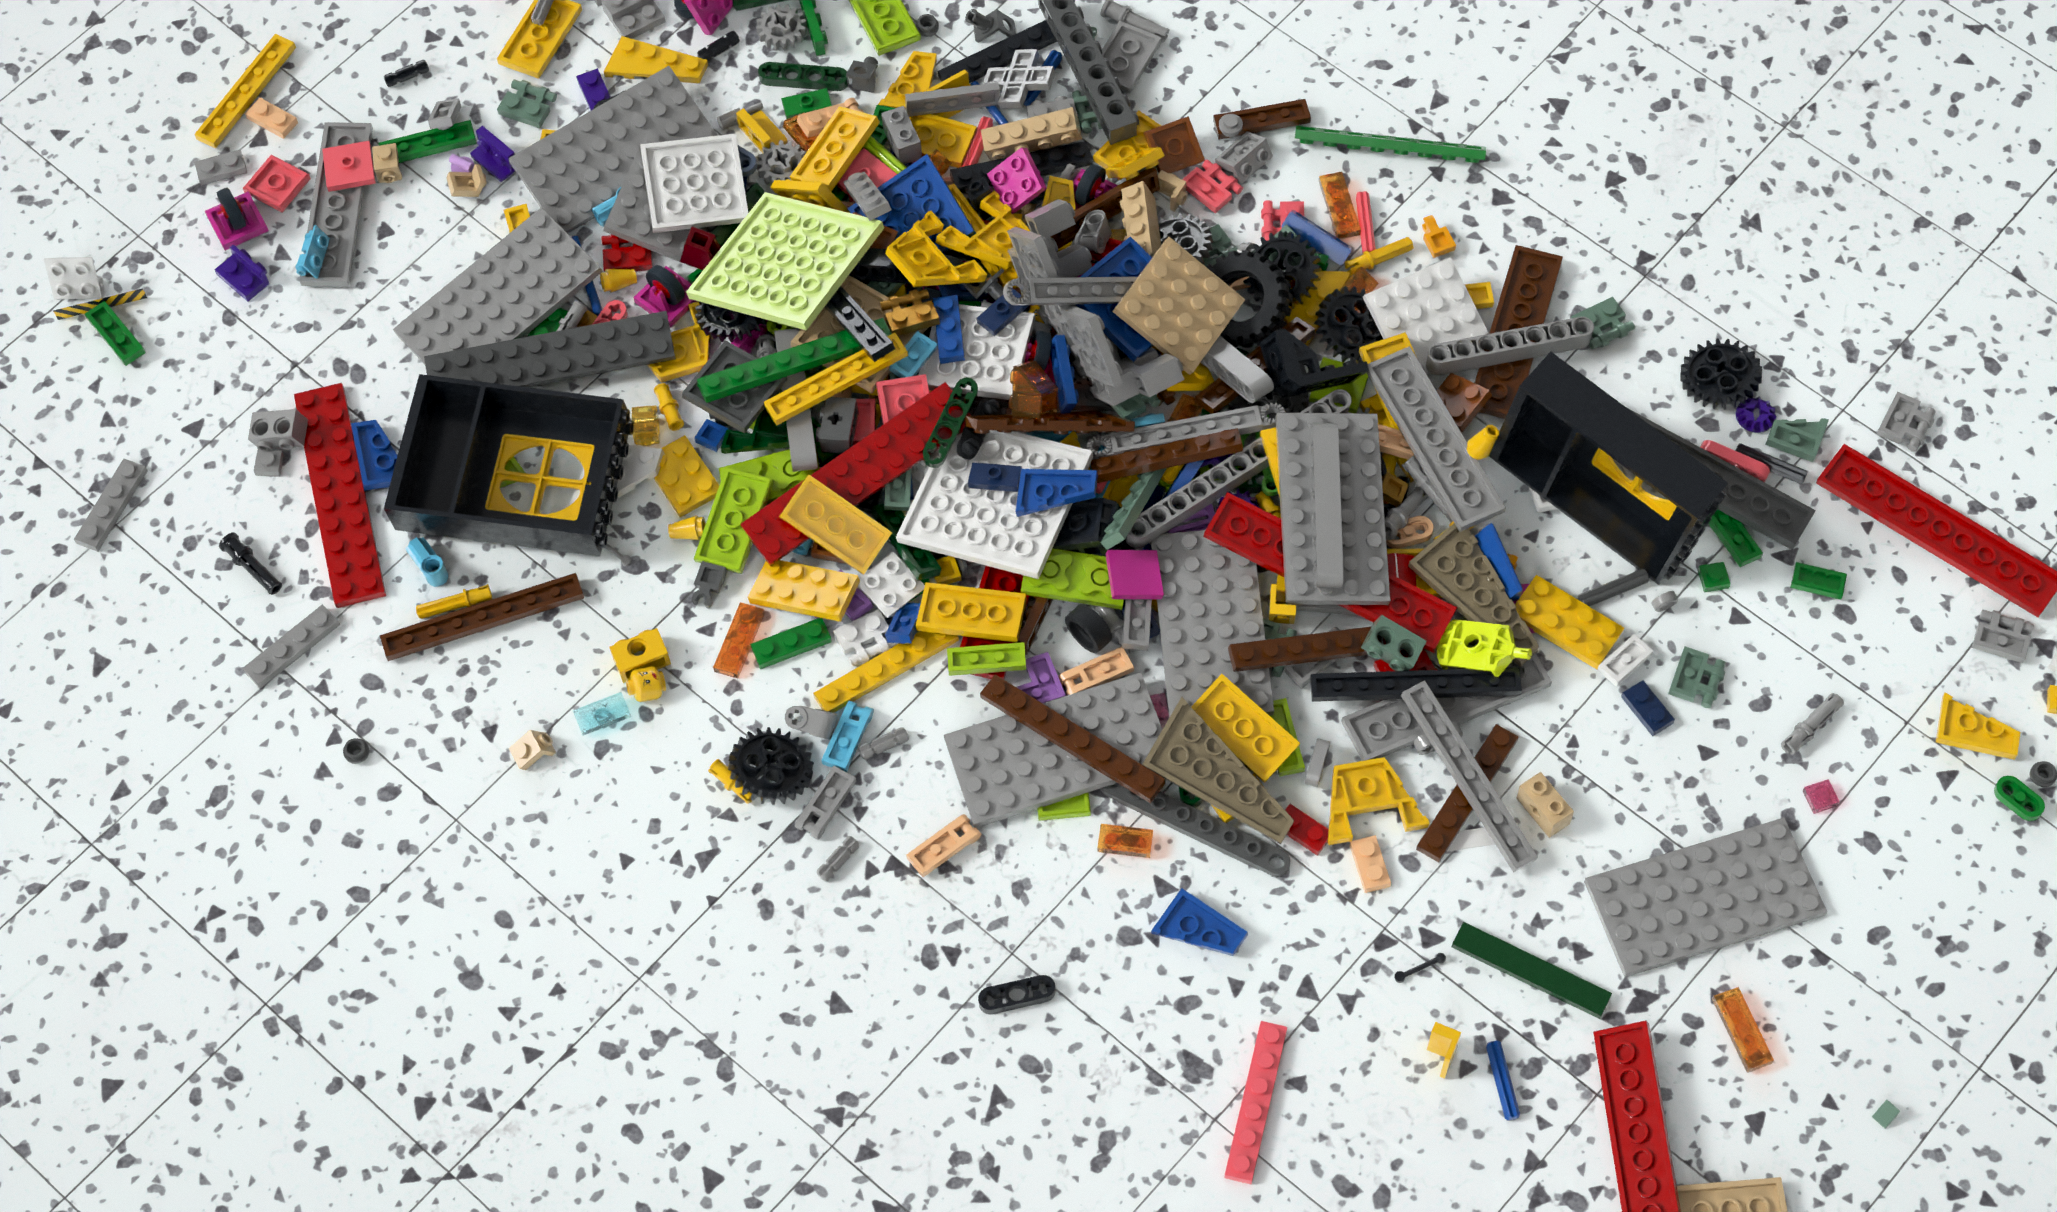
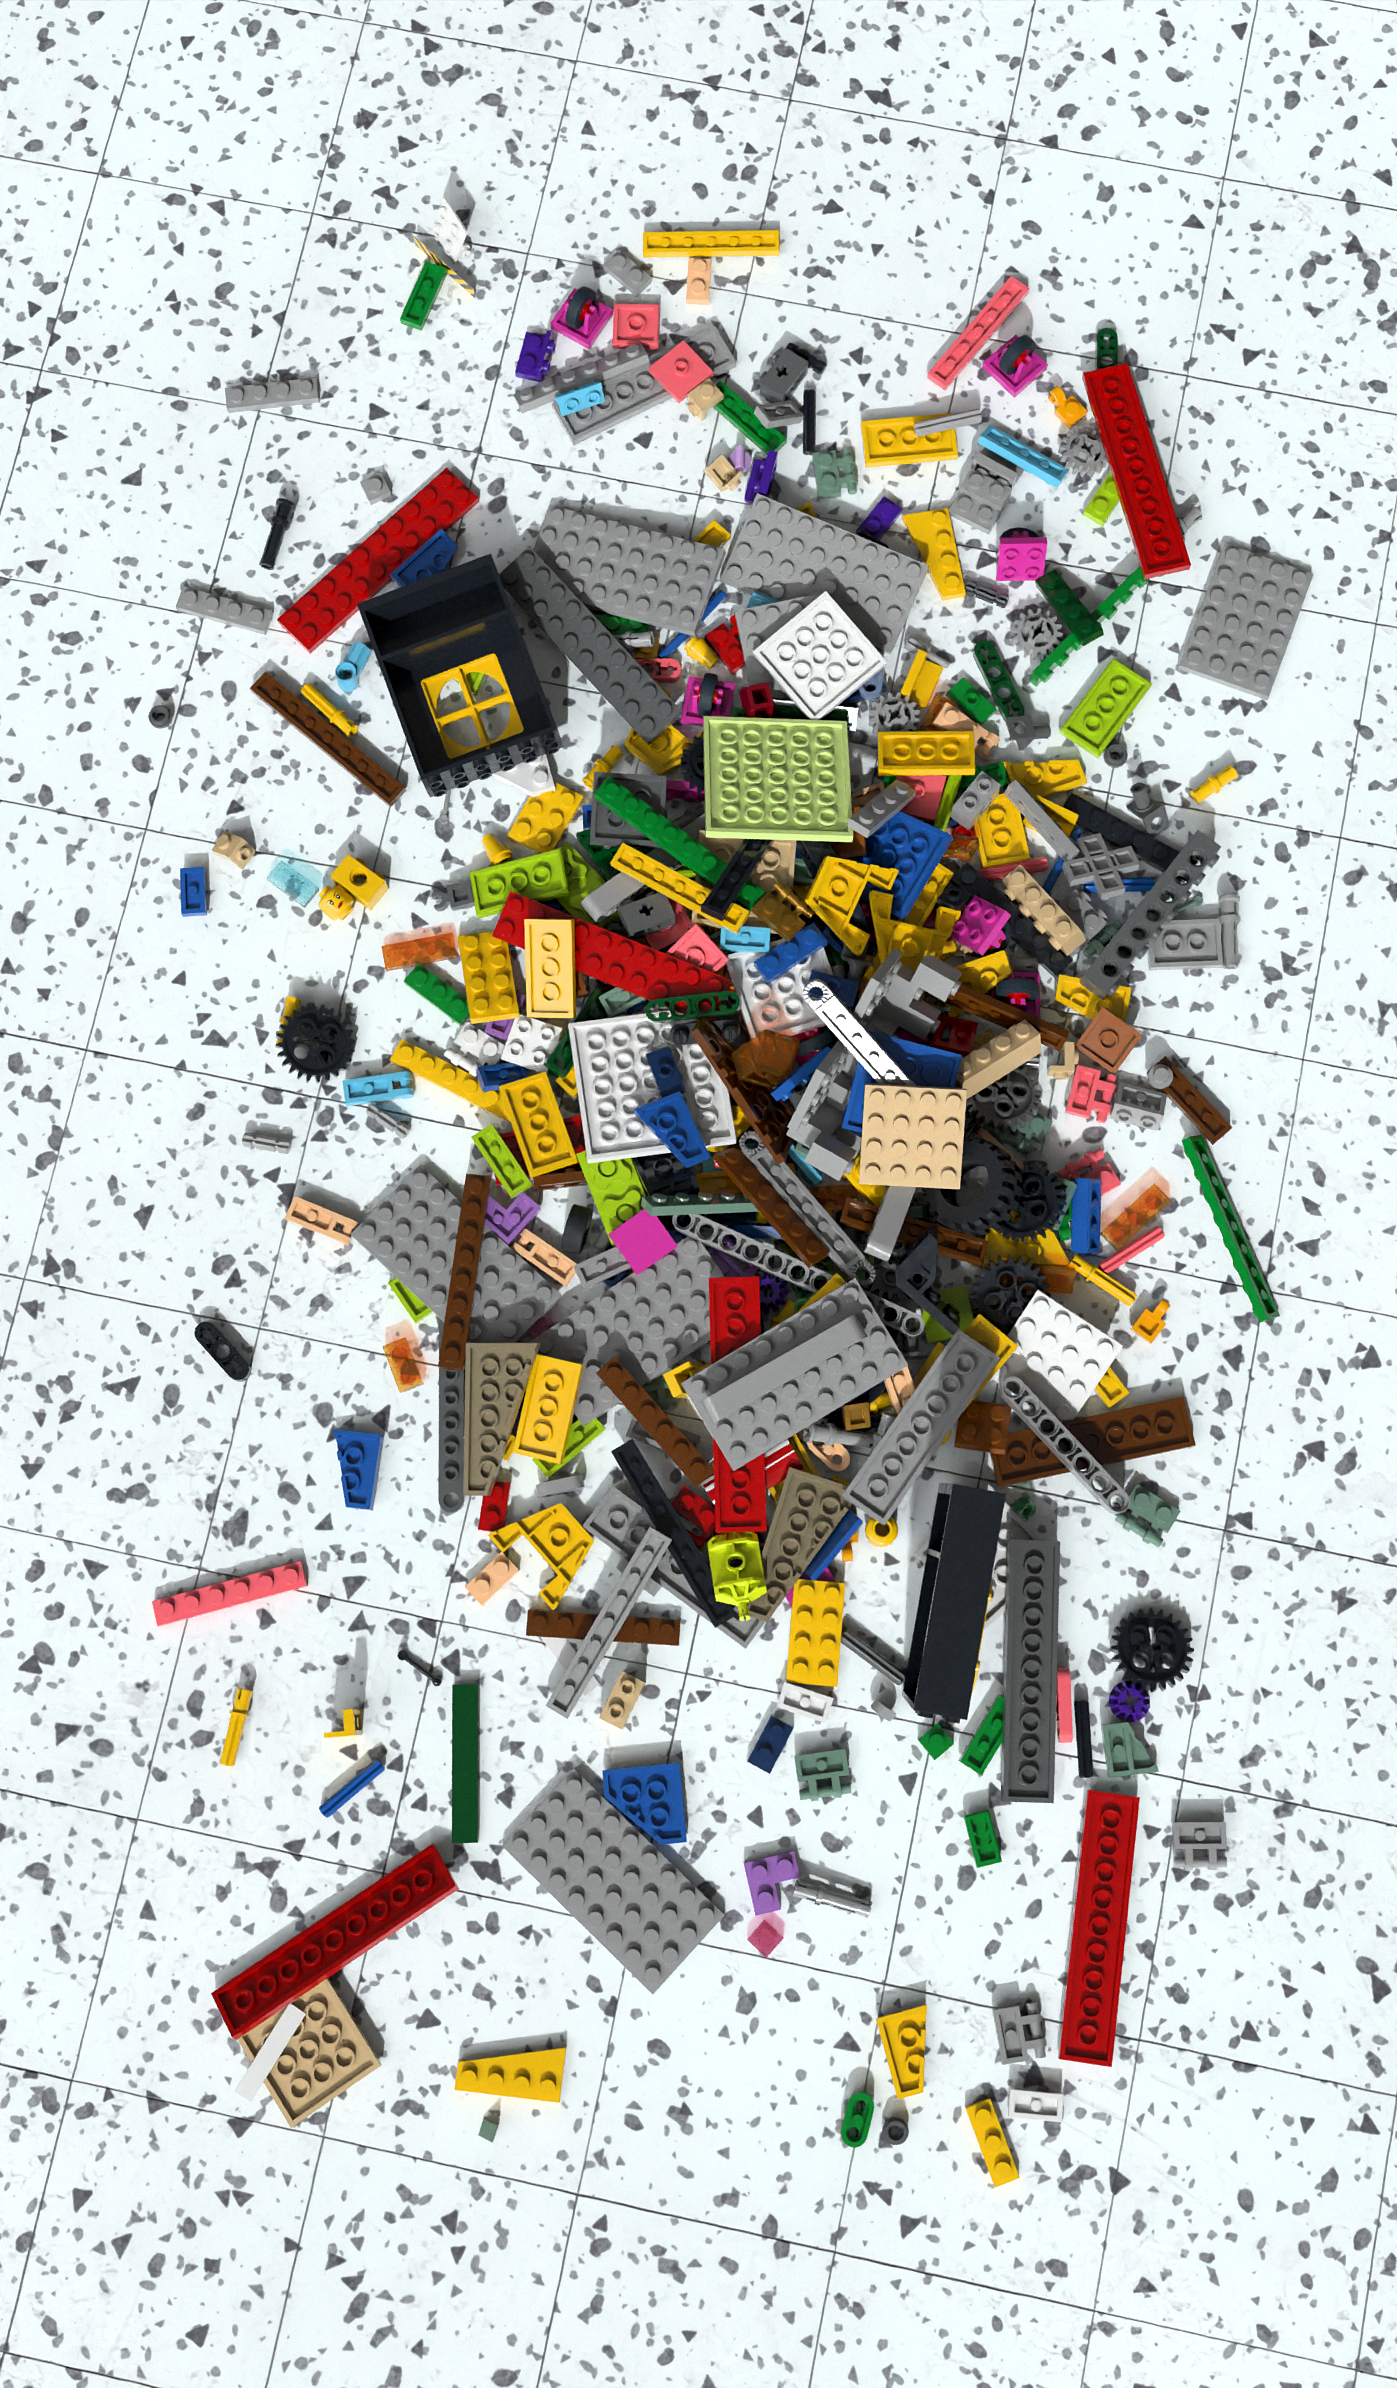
camera: 60 degrees right, 15 degrees up
(278, 429) = (402, 476): light grey brick -> none
(294, 235) = (599, 370): none -> light grey plate
(412, 96) = (783, 377): none -> dark grey brick
(466, 98) = (809, 421): none -> black axle
(550, 803) = (193, 891): none -> blue plate
(646, 425) = (572, 760): clear yellow brick -> none
(810, 192) = (869, 759): yellow wing -> none
(815, 721) = (374, 1053): light grey piece -> none
(825, 802) = (309, 1105): light grey plate -> none
(1094, 232) = (966, 1020): light grey piece -> none
(1129, 166) = (1063, 1015): yellow plate -> none
(1389, 1156) = (236, 1725): none -> yellow axle
(1395, 638) = (702, 1495): sand green brick -> none
(1482, 443) = (931, 1472): yellow cone -> none
(1508, 523) = (881, 1535): none -> yellow head
(1647, 827) = (650, 1799): none -> blue plate
(1742, 1029) = (501, 1971): clear orange plate -> none
(1764, 771) = (763, 1875): none -> medium lavender plate
(1846, 1063) = (521, 2075): none -> yellow wing

